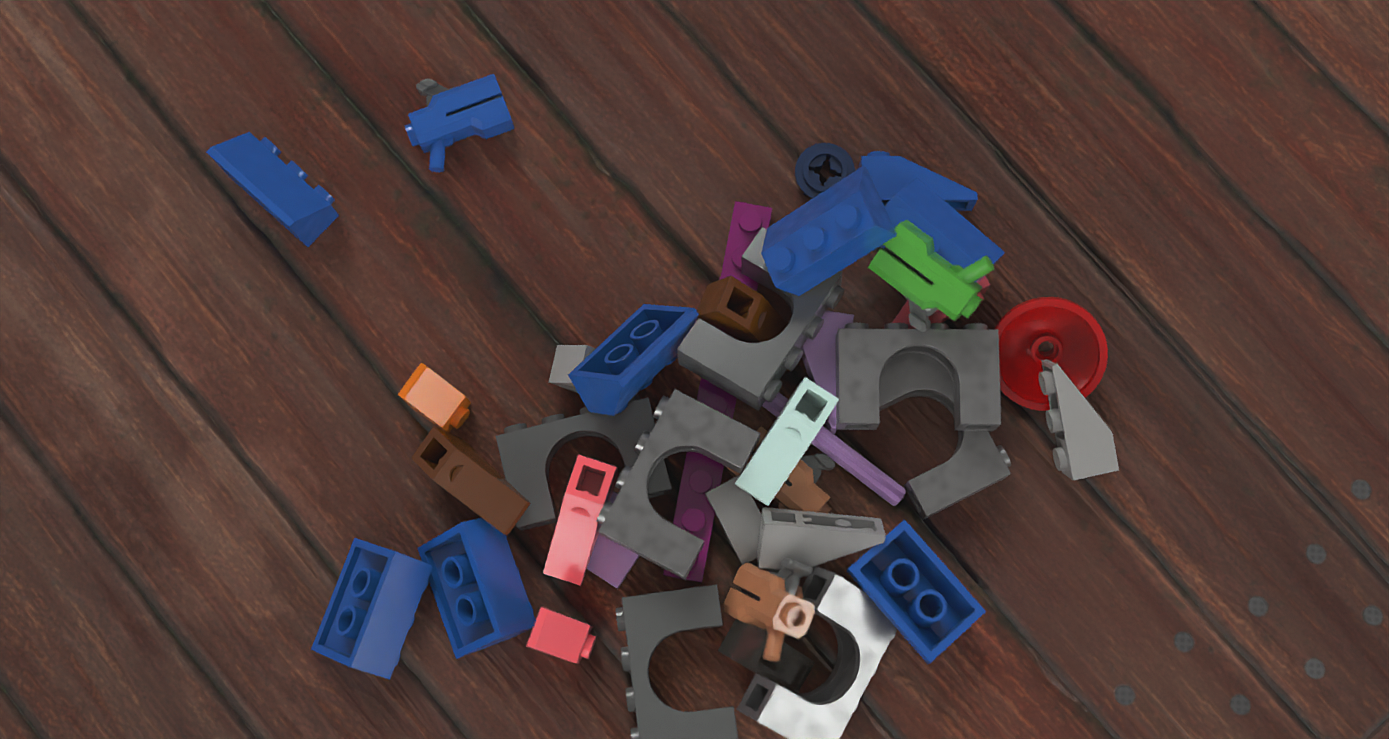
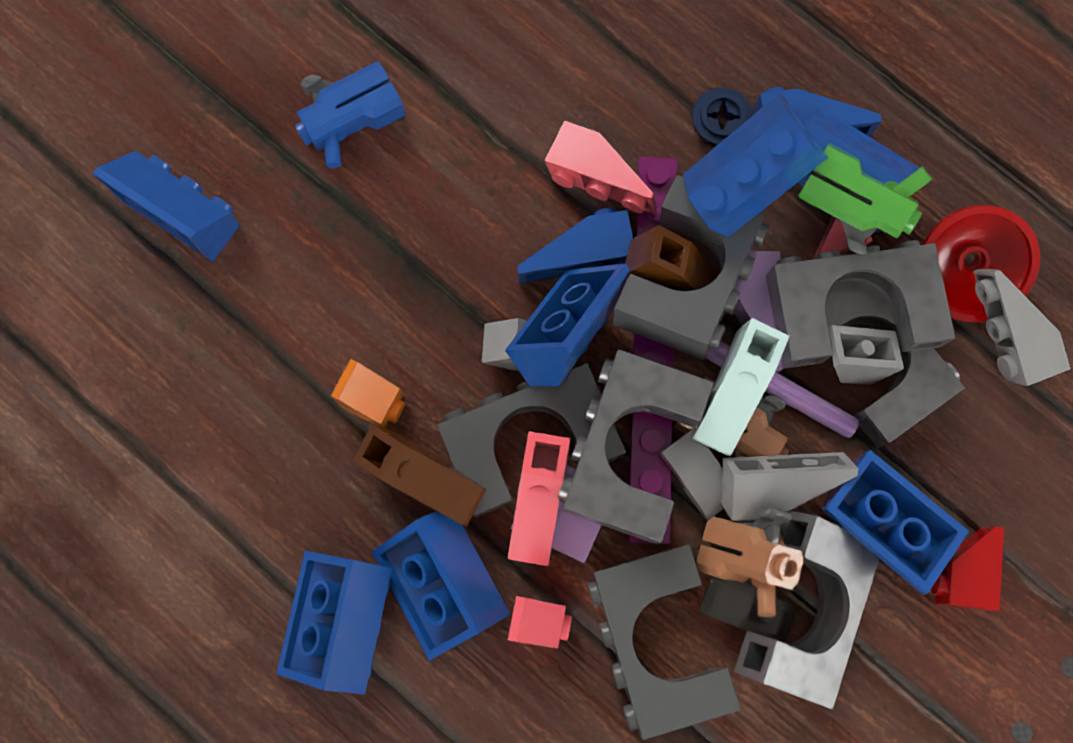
camera: 15 degrees left, 0 degrees up
(671, 282) = (591, 243): none -> blue slope
(682, 200) = (591, 163): none -> coral slope
(915, 426) = (864, 354): none -> light grey slope
(987, 654) = (973, 573): none -> red slope

